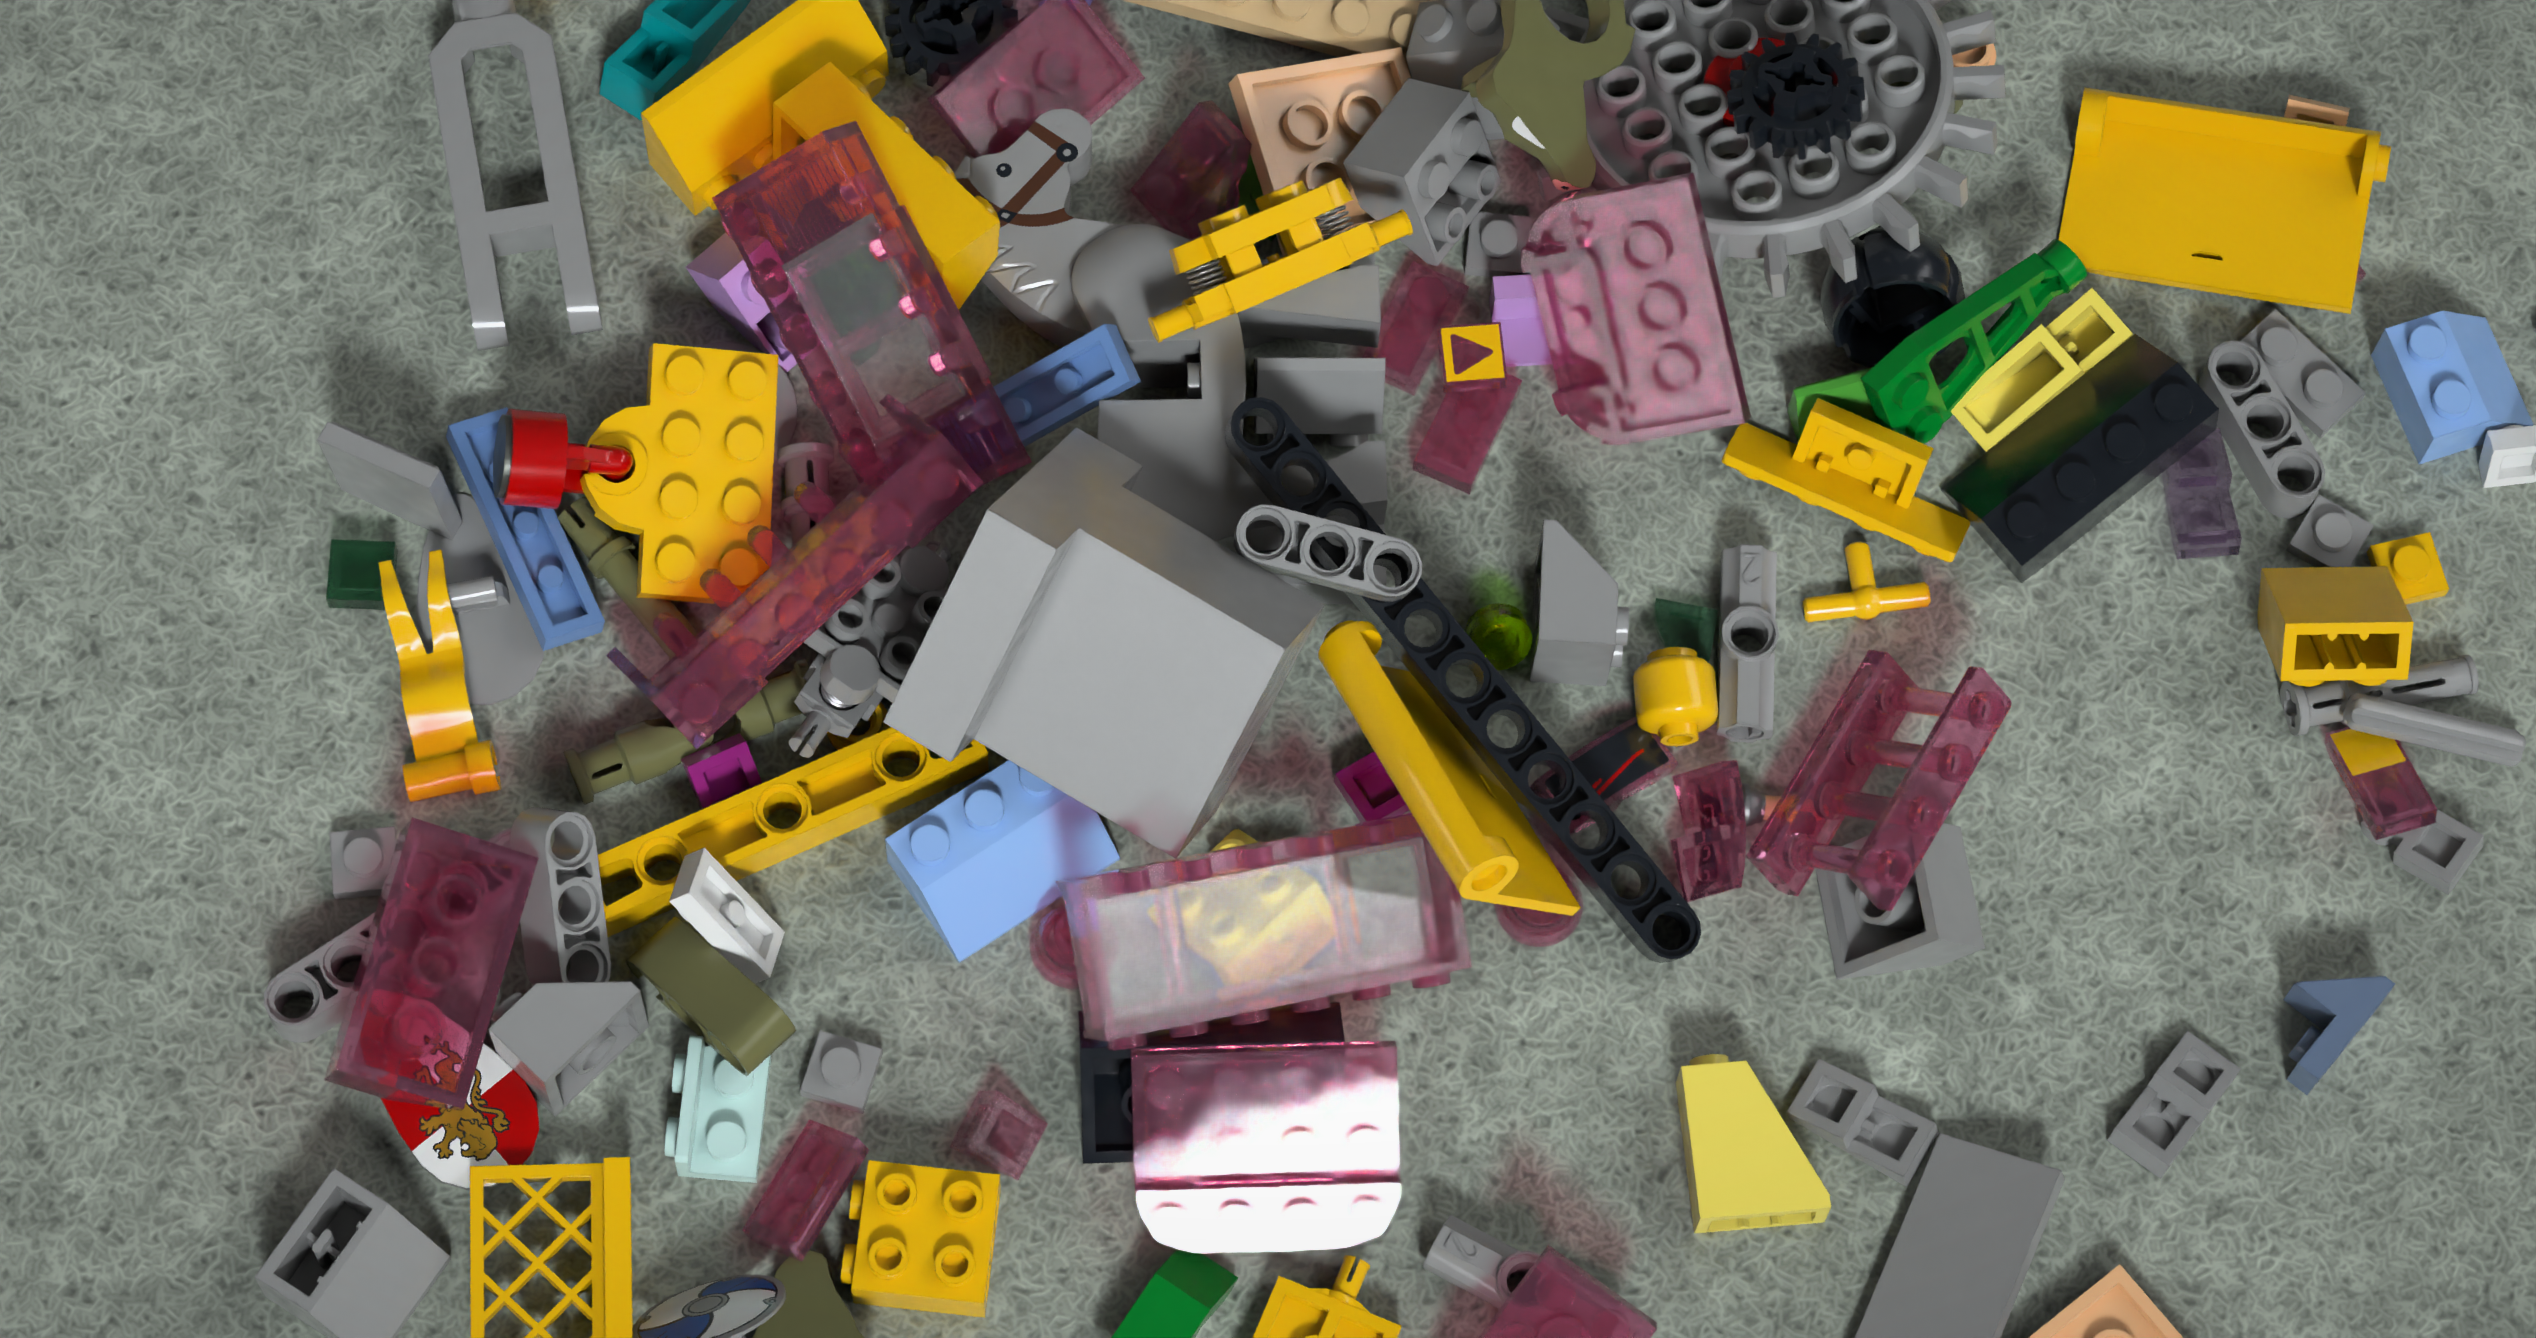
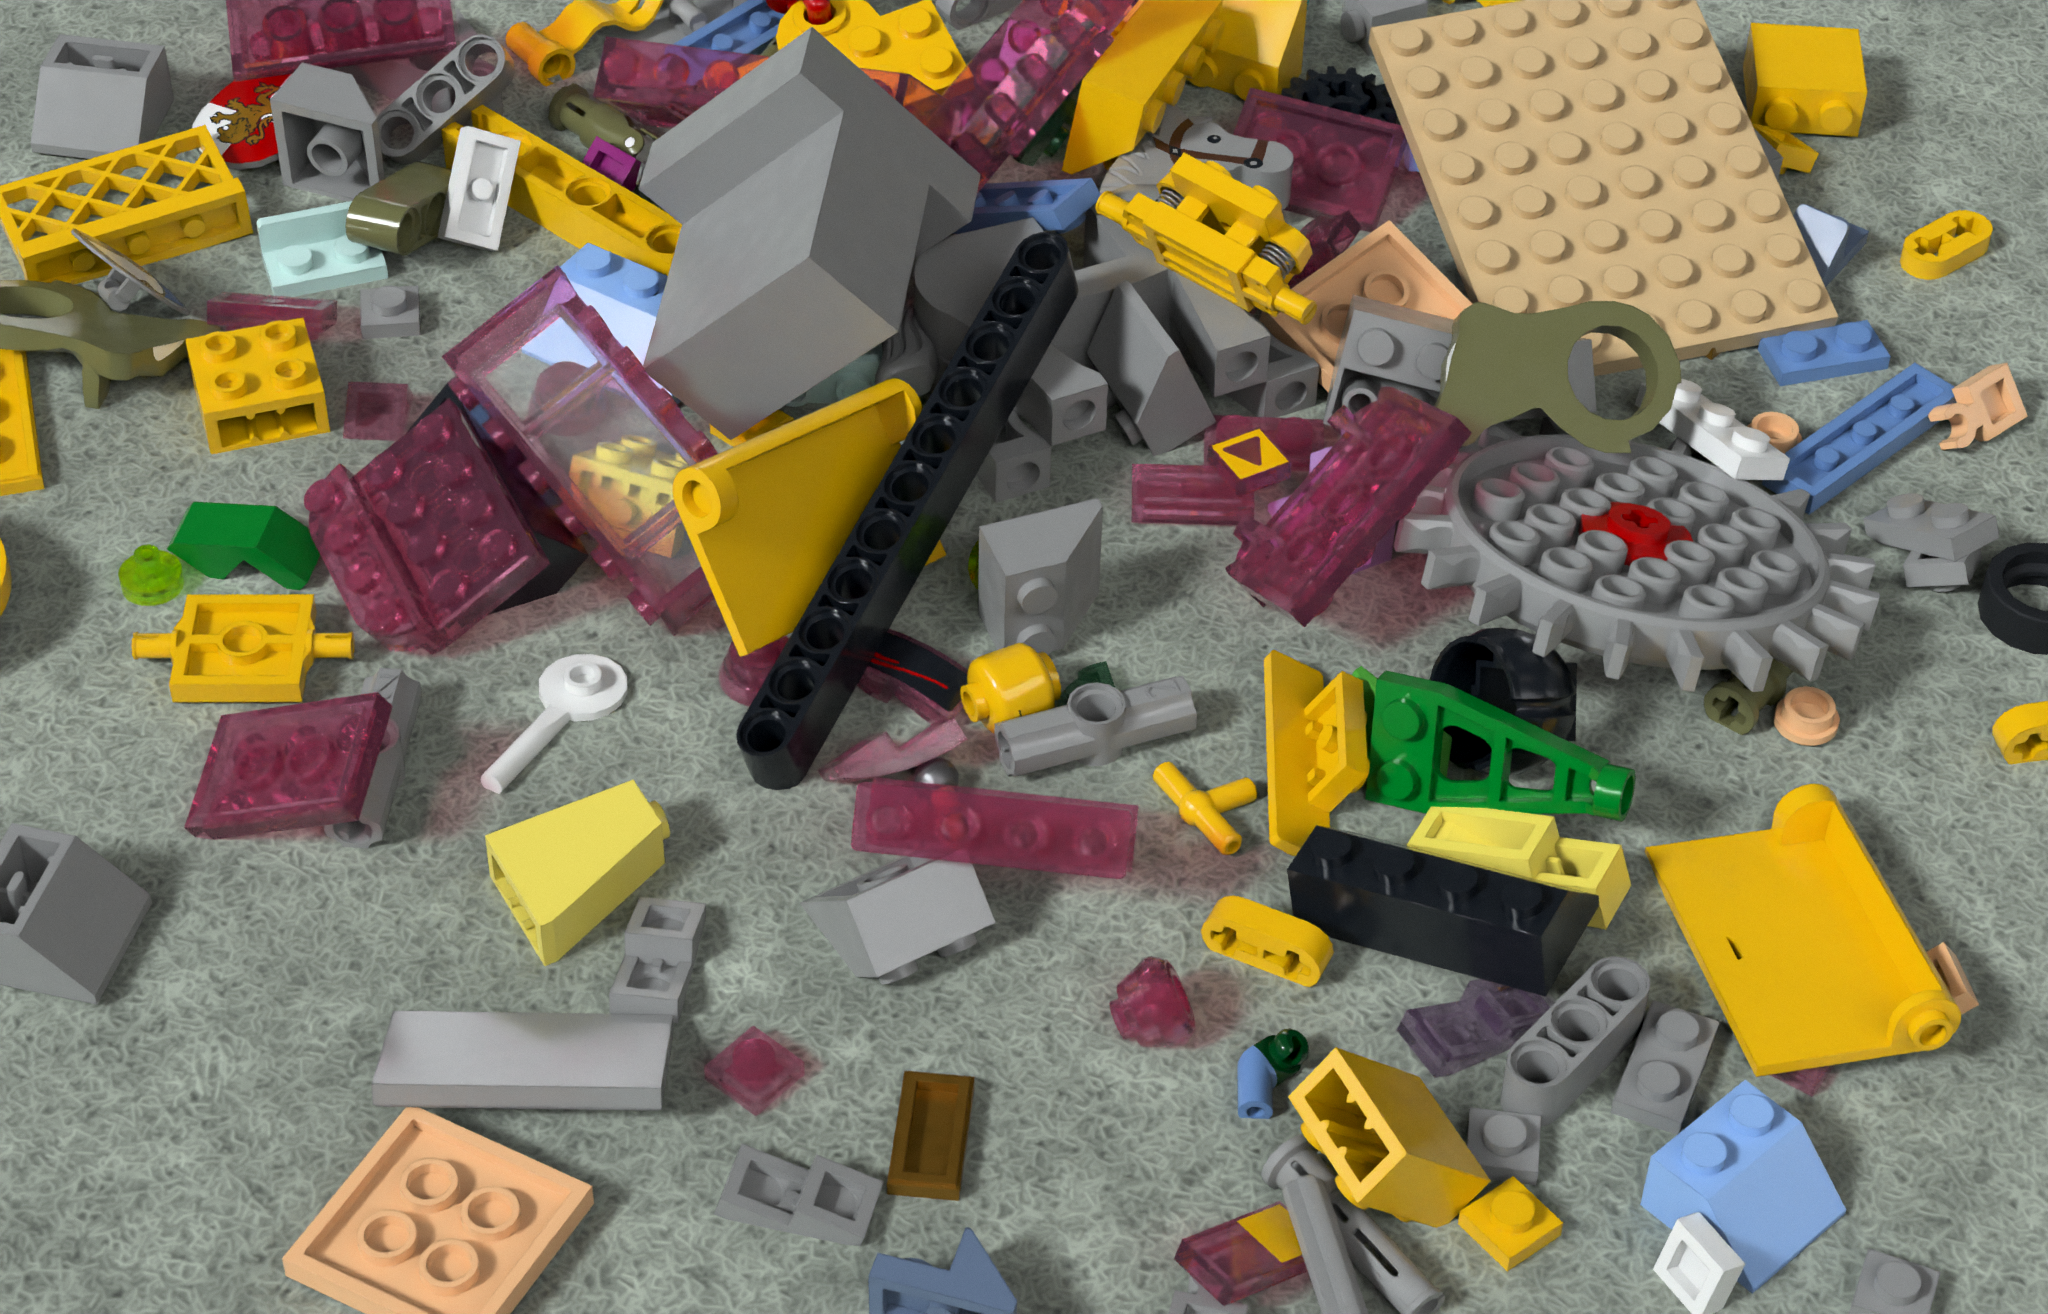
camera: 70 degrees right, 25 degrees down
(1360, 550) = (949, 324): light grey beam -> none
(1488, 1074) = (570, 689): none -> white piece
(1801, 95) = (1621, 516): black gear -> none
(2023, 1089) = (754, 1070): none -> clear pink plate
(2053, 615) = (1268, 939): none -> yellow beam
(2096, 739) = (1153, 1005): none -> clear pink cone
(2147, 973) = (931, 1136): none -> pearl gold tile
(2179, 683) = (1266, 1067): none -> arm

